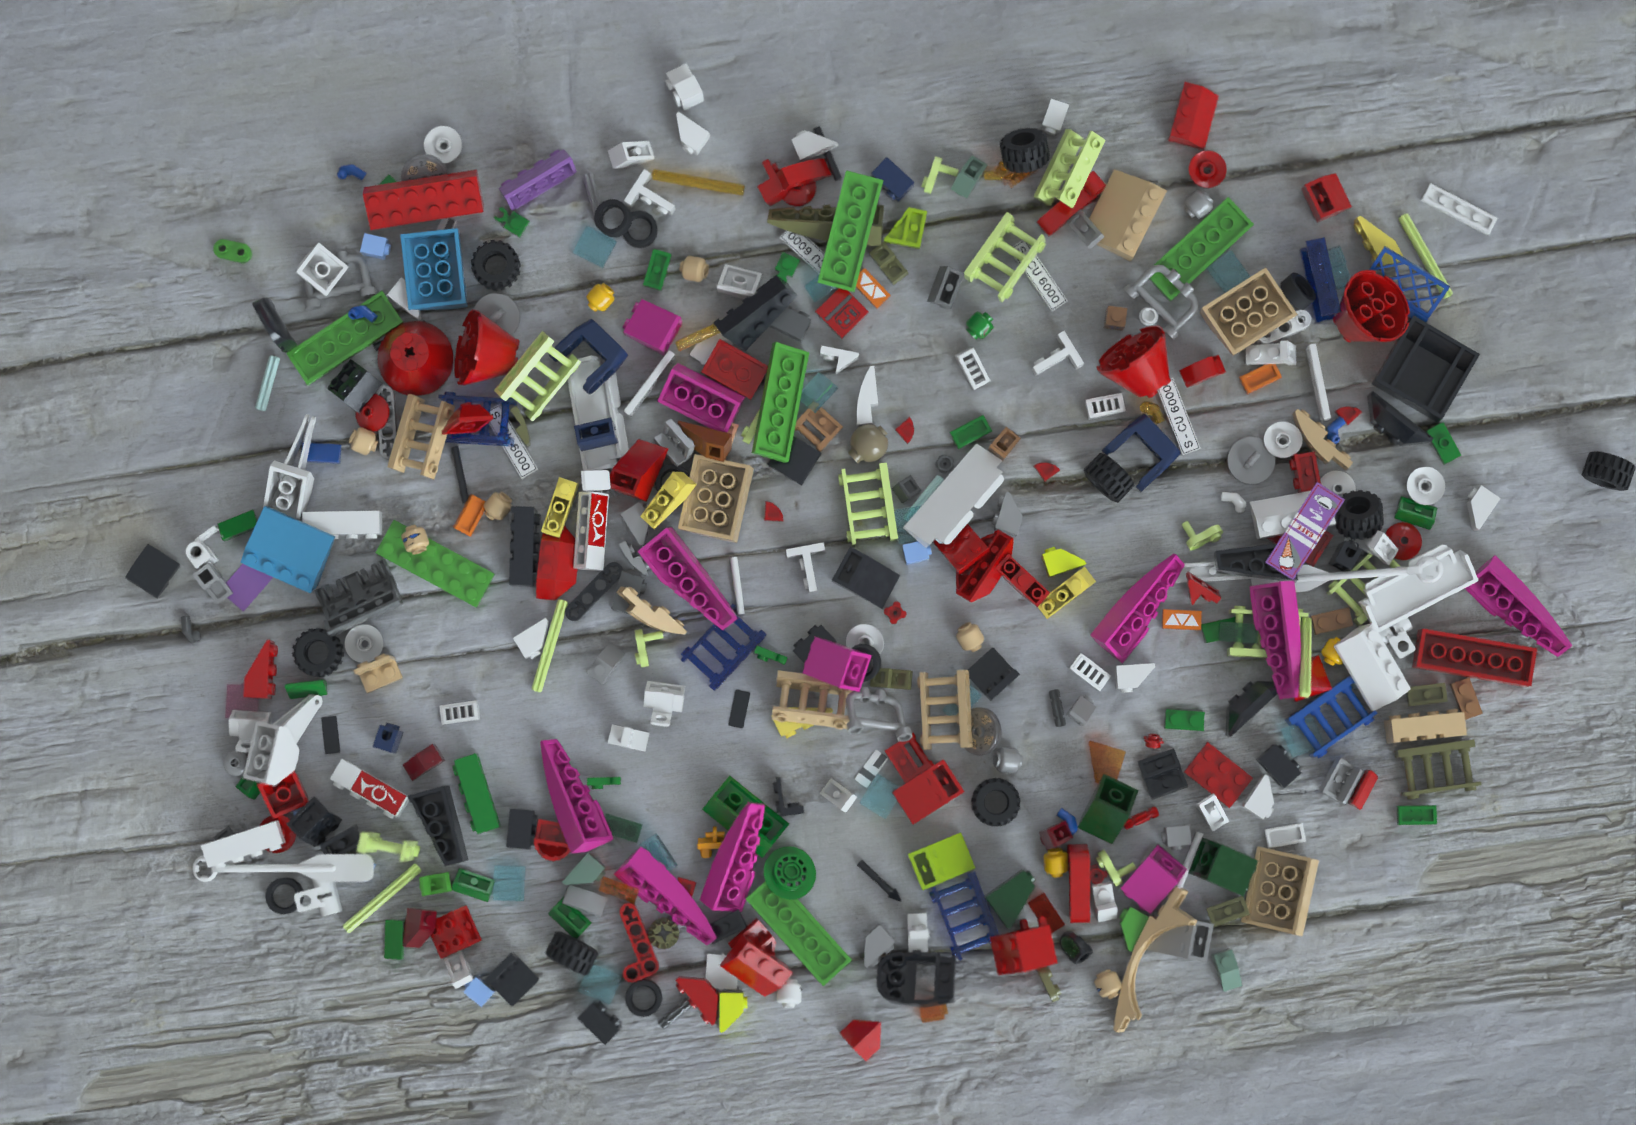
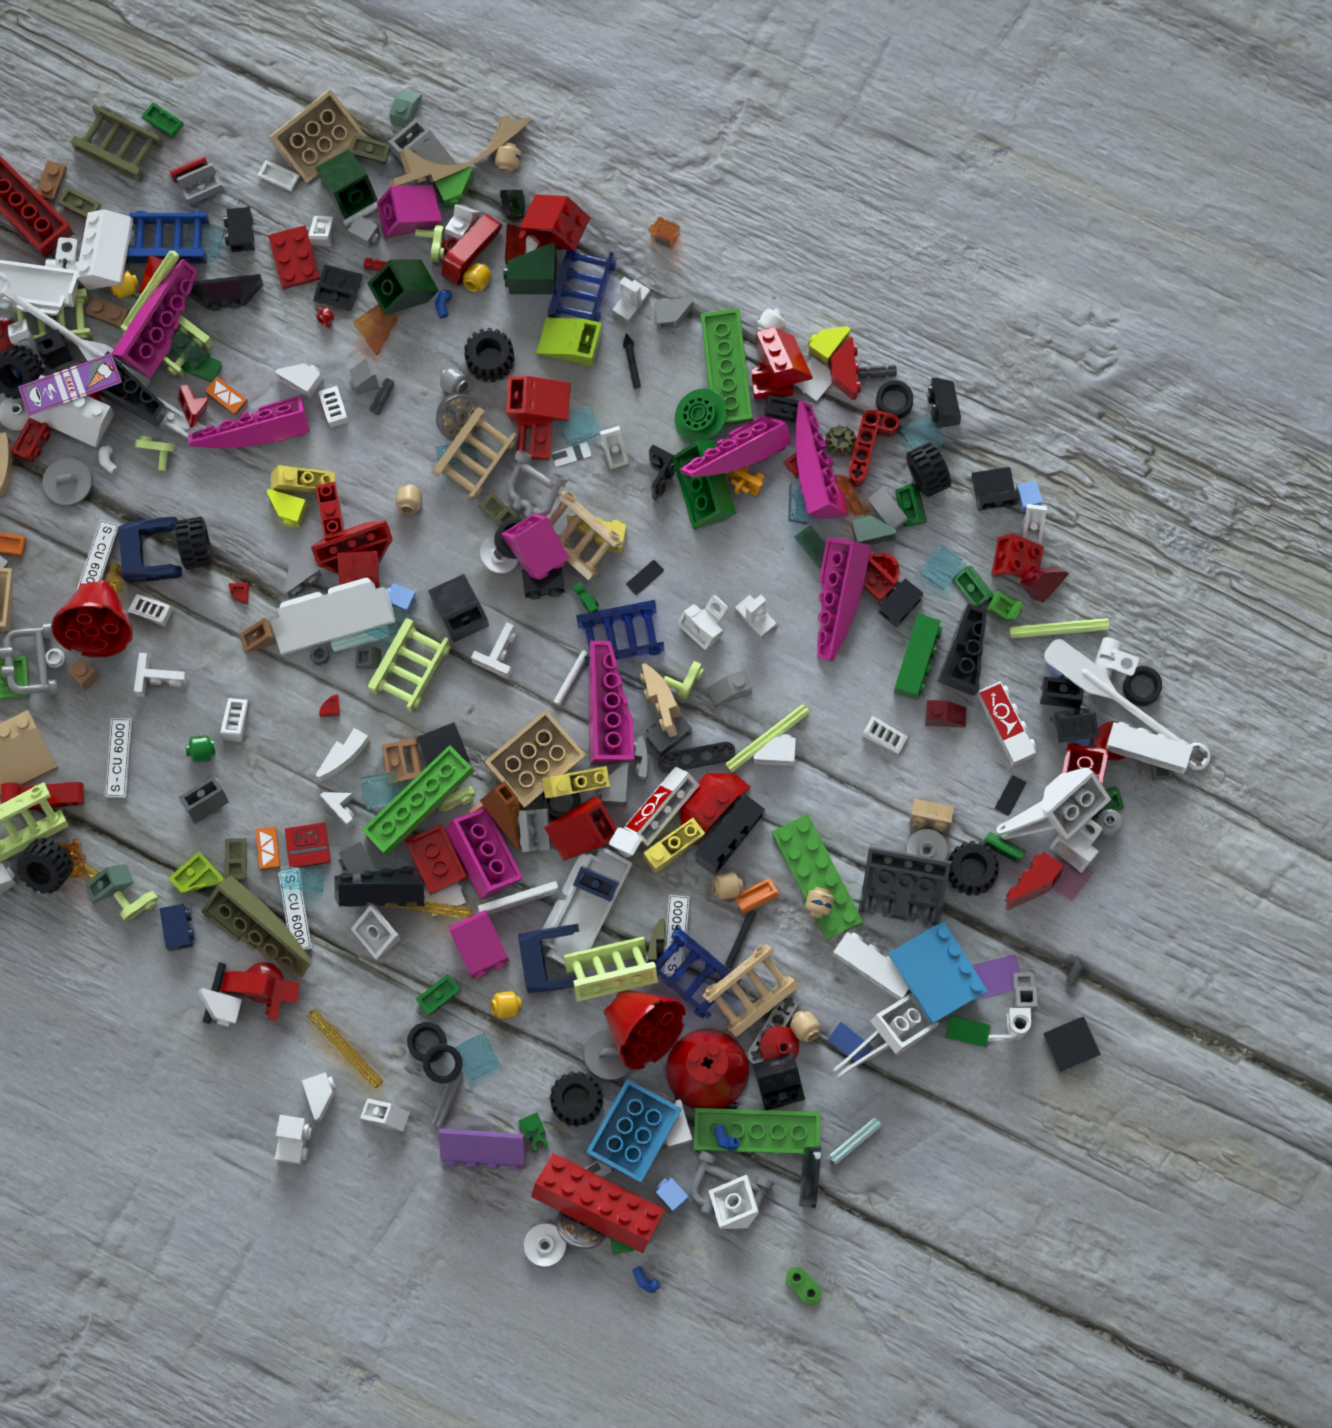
camera: 140 degrees left, 10 degrees down
(371, 841) = (1023, 654): yellowish green fence -> none
(388, 738) = (961, 751): dark blue brick -> none
(394, 939) = (1072, 587): green slope -> none
(467, 419) = (698, 970): red slope -> none
(597, 783) = (807, 595): green plate -> none
(647, 196) = (398, 1065): white bracket -> none
(694, 268) = (405, 972): tan head -> none
(772, 512) = (495, 717): red tile -> none
(786, 266) = (325, 919): green plate -> none
(850, 231) = (246, 898): bright green plate -> none
(863, 1037) = (736, 251): red slope -> none
(868, 443) = (370, 714): dark tan brick -> none
(895, 607) = (451, 559): red plate -> none
(898, 978) = (672, 275): black slope -> none
(970, 432) = (277, 666): green plate -> none
(992, 674) = (413, 456): black bracket -> none
(996, 240) = (149, 803): yellowish green fence -> none
(1052, 990) = (556, 184): olive plate -> none
(1055, 835) = (461, 295): dark red slope -> none
(1085, 229) = (48, 764): light grey plate -> none
(1184, 720) = (287, 317): green plate -> none
(1202, 371) = (48, 578): red brick -> none
(1260, 799) = (274, 215): white slope -> none
(1286, 432) = (19, 474): white dish -> none
(1425, 727) = (102, 179): tan wedge -> none

